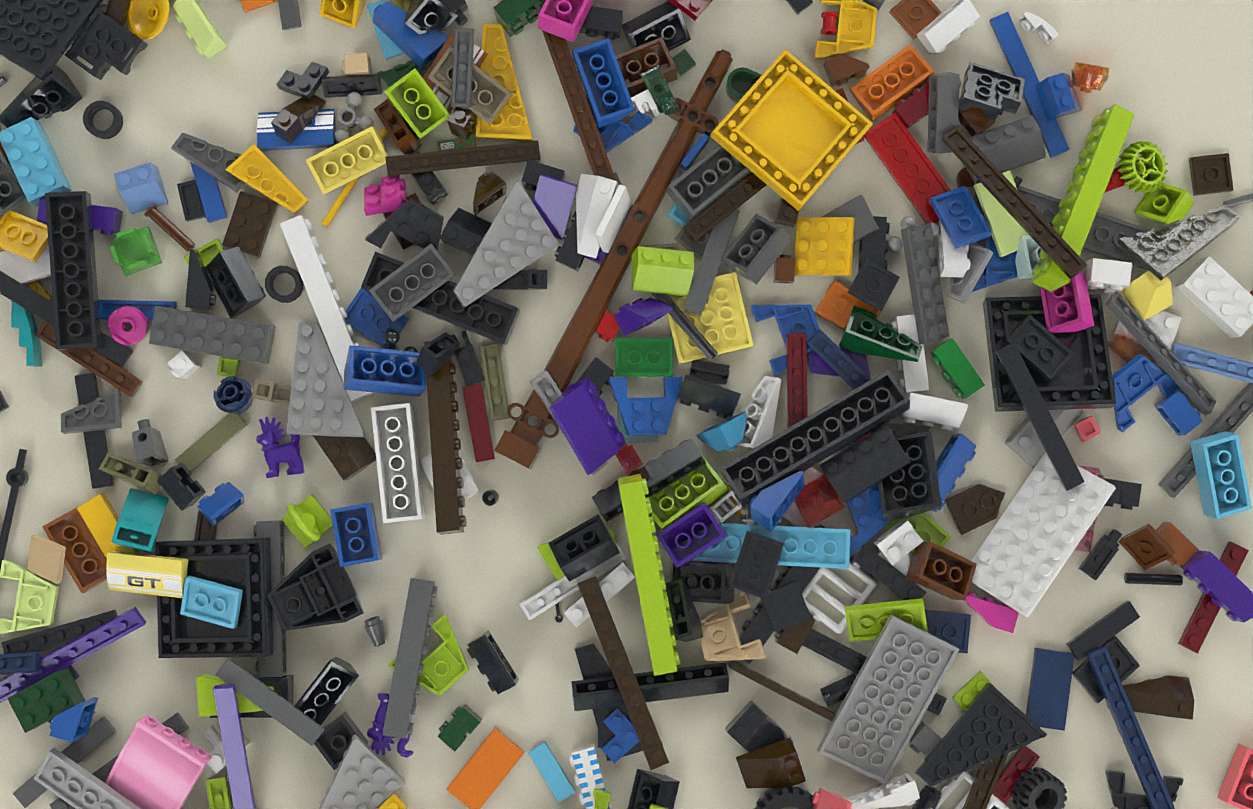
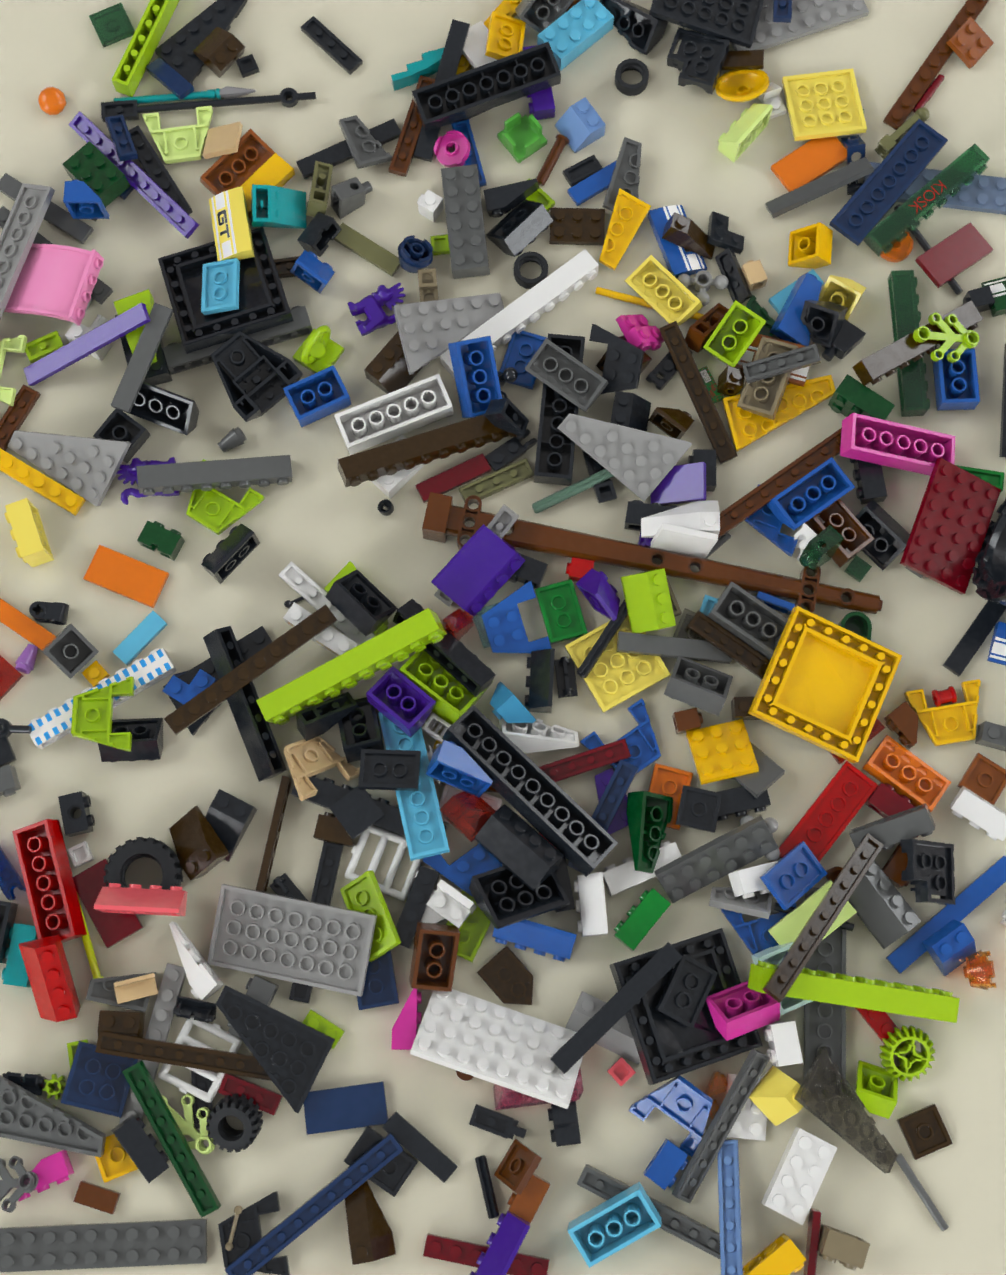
camera: 75 degrees right, 10 degrees down
(527, 312) = (571, 490): none -> sand green axle

